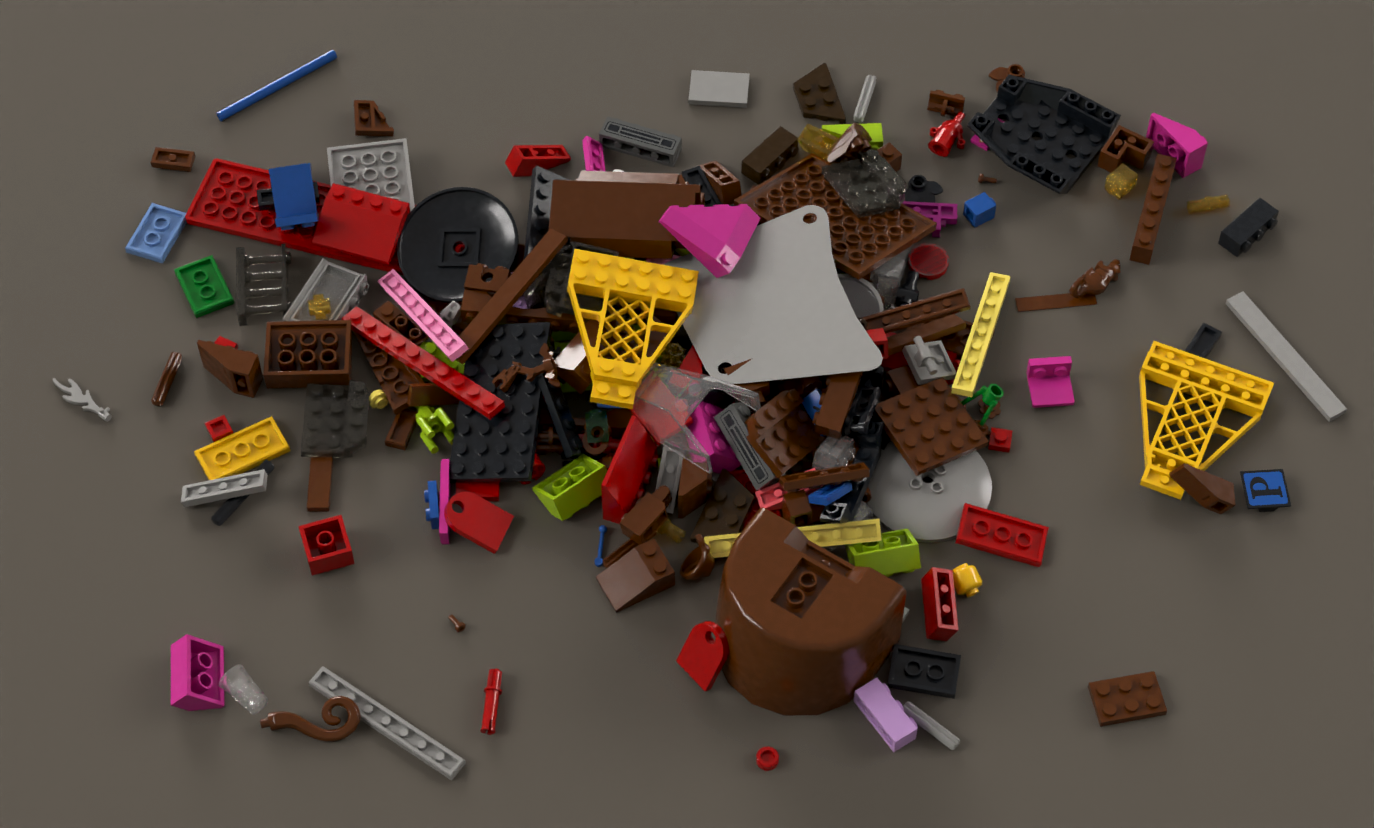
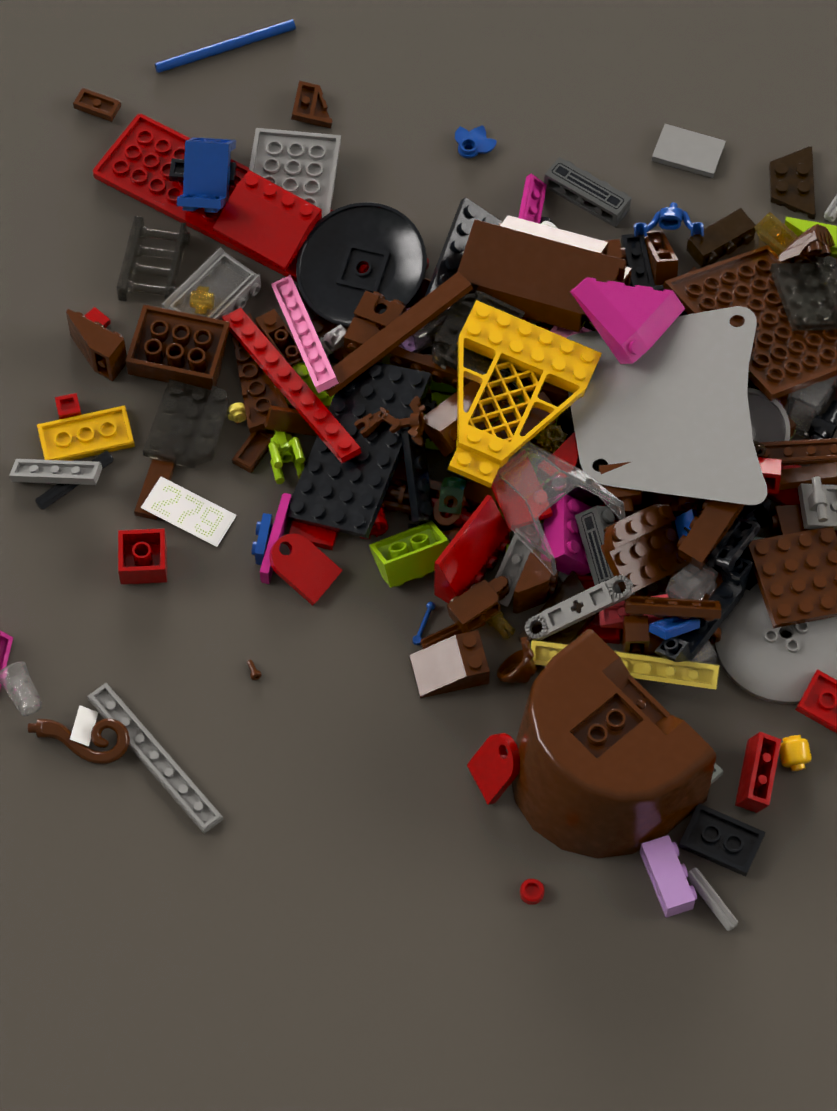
camera: 15 degrees right, 5 degrees up
(156, 233) = (60, 181): medium blue tile -> none
(166, 379) = (29, 340): reddish brown axle -> none
(204, 286) = (93, 249): green tile -> none
(312, 709) = (83, 725): none -> white sticker
(357, 496) = (188, 511): none -> white sticker
(491, 701) = (268, 755): red axle -> none
(526, 121) = (473, 140): none -> blue plate
(526, 157) = (472, 185): red slope -> none
(721, 148) = (669, 219): none -> blue piece
(752, 486) = (563, 614): none -> light grey piece
(892, 555) = (724, 707): lime slope -> none

